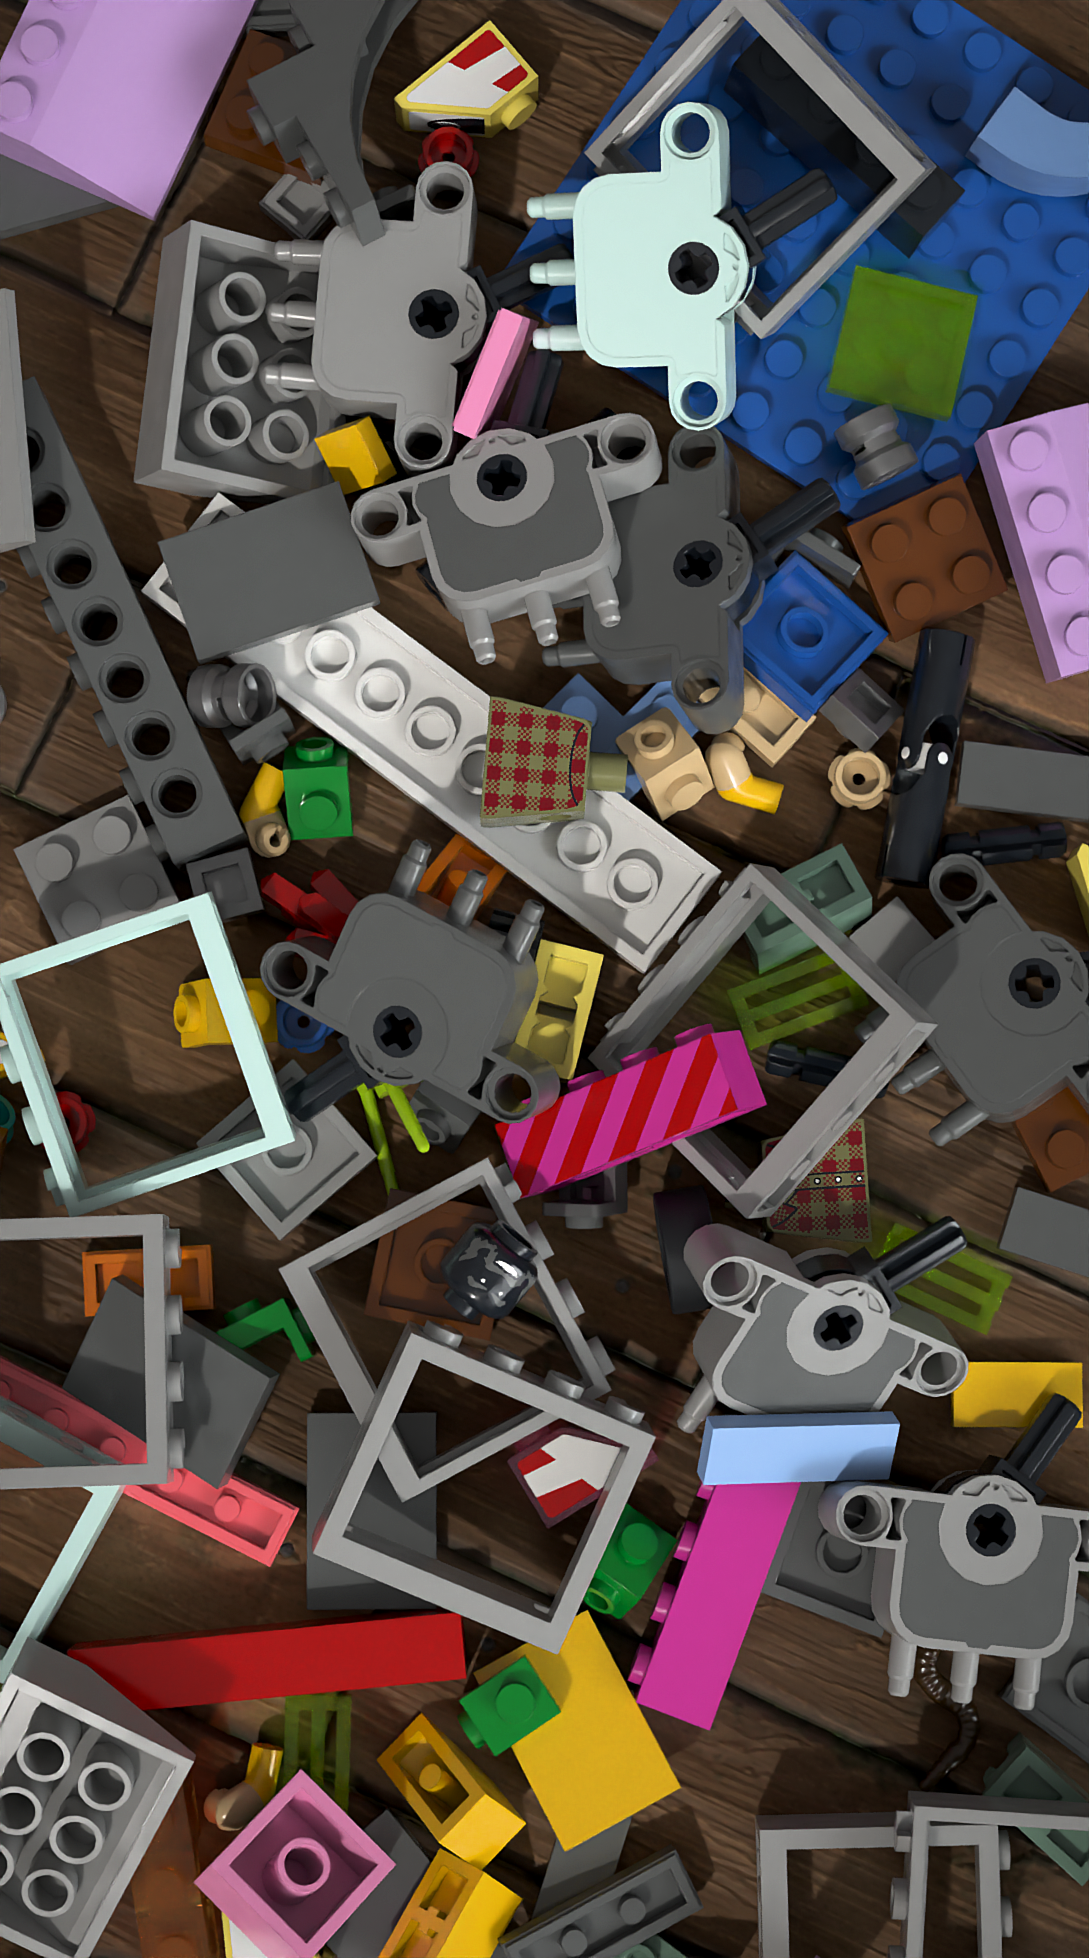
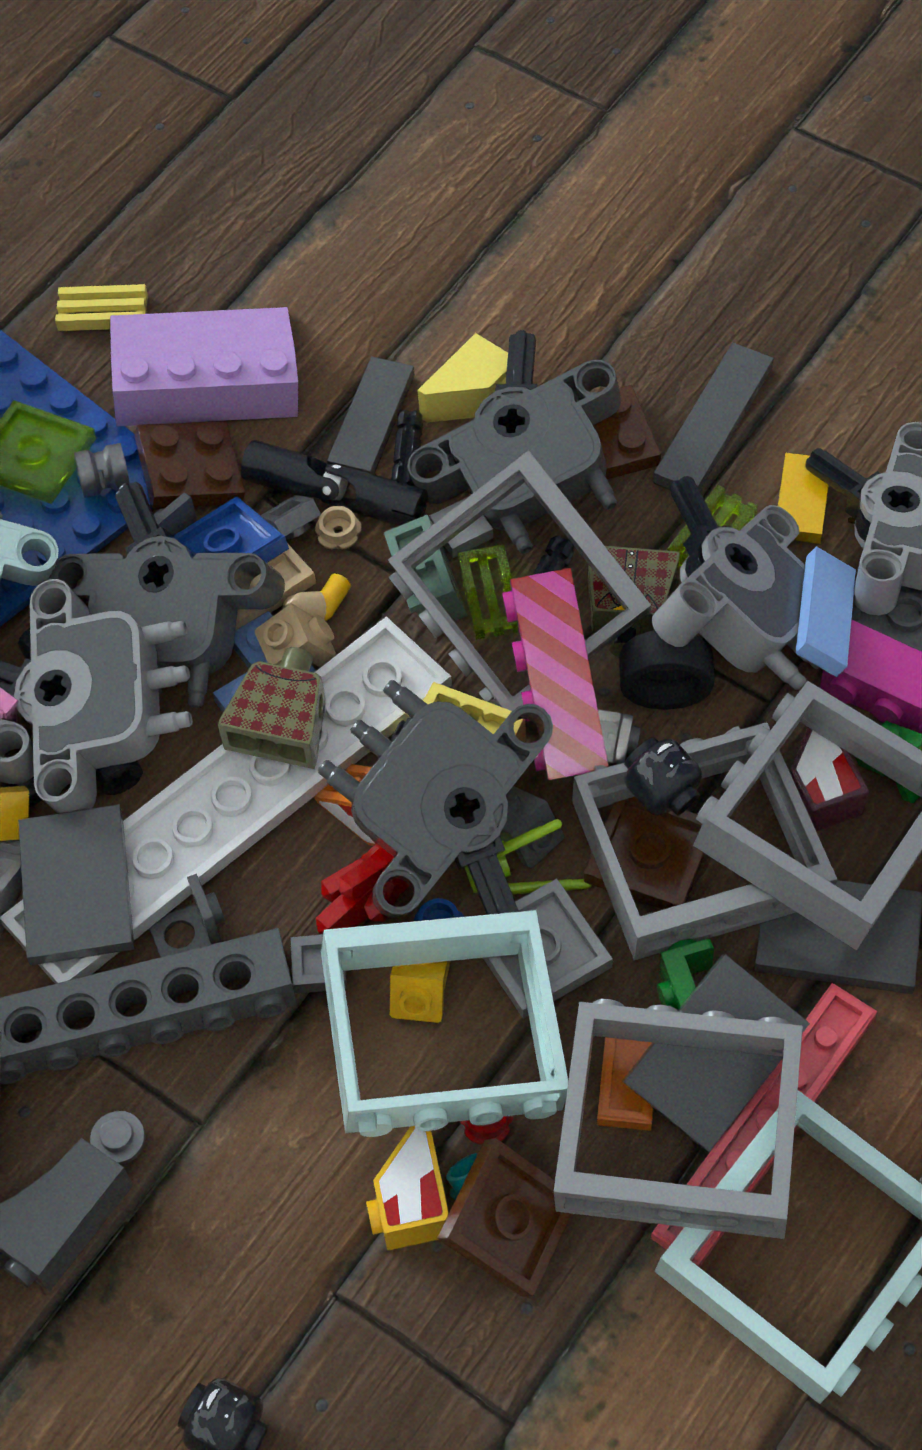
camera: 75 degrees left, 25 degrees down
(96, 872) = (285, 1064): light grey plate -> none
(220, 696) = (165, 924): flat silver wheel -> none
(262, 815) = (248, 923): arm -> none
(317, 789) = (256, 883): green bracket -> none

